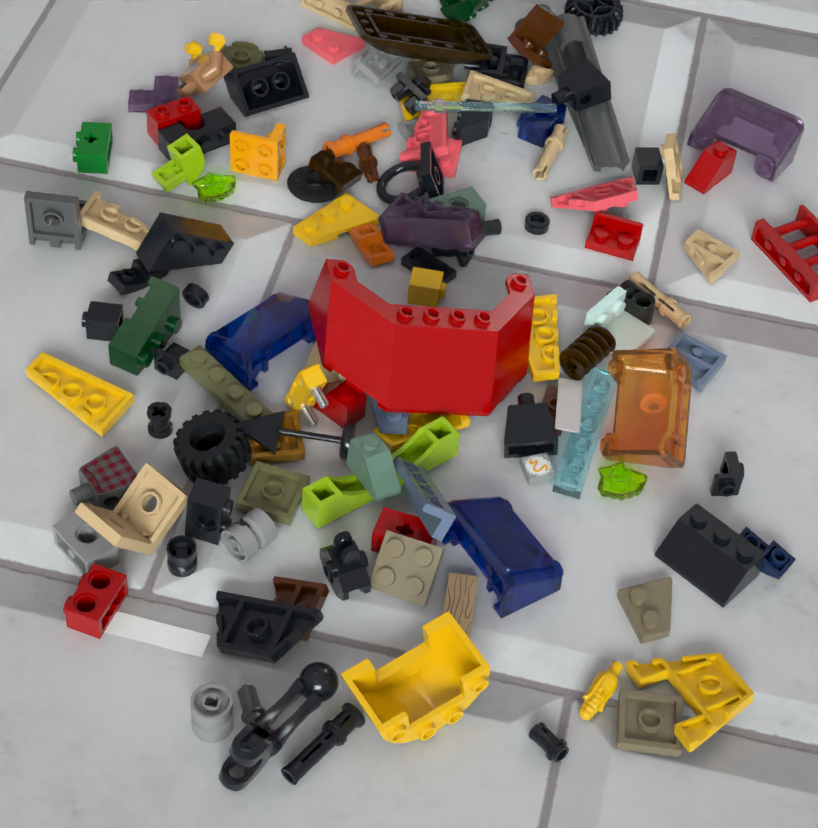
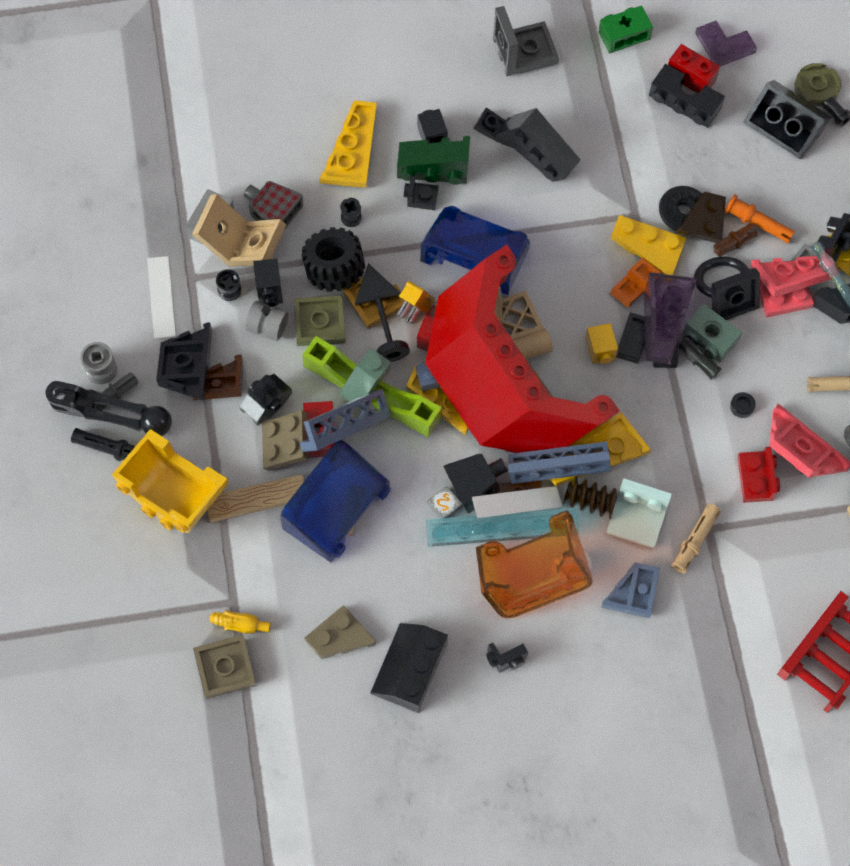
camera: 70 degrees right, 20 degrees up
(99, 602) = (163, 254): red brick -> none
(110, 222) = (541, 81): tan wing -> none
(185, 164) = (635, 100): lime brick -> none
(195, 295) = (495, 178): black tile -> none
(203, 69) = (763, 63): medium nougat torso -> none
(214, 187) = (634, 137): clear neon green animal -> none
(222, 385) = (408, 241): olive plate -> none
(259, 154) = (686, 162): light orange bracket -> none
(549, 358) = (559, 466): none -> sand blue fence
(555, 748) = (175, 600): black pin -> none
(620, 482) = (460, 572): clear neon green animal -> none
(638, 302) = (678, 513): pearl dark grey piece -> none
(707, 686) = (272, 701): yellow wing -> none
(710, 255) = (781, 566): tan wing -> none
(776, 559) = (437, 708): dark blue slope -> none

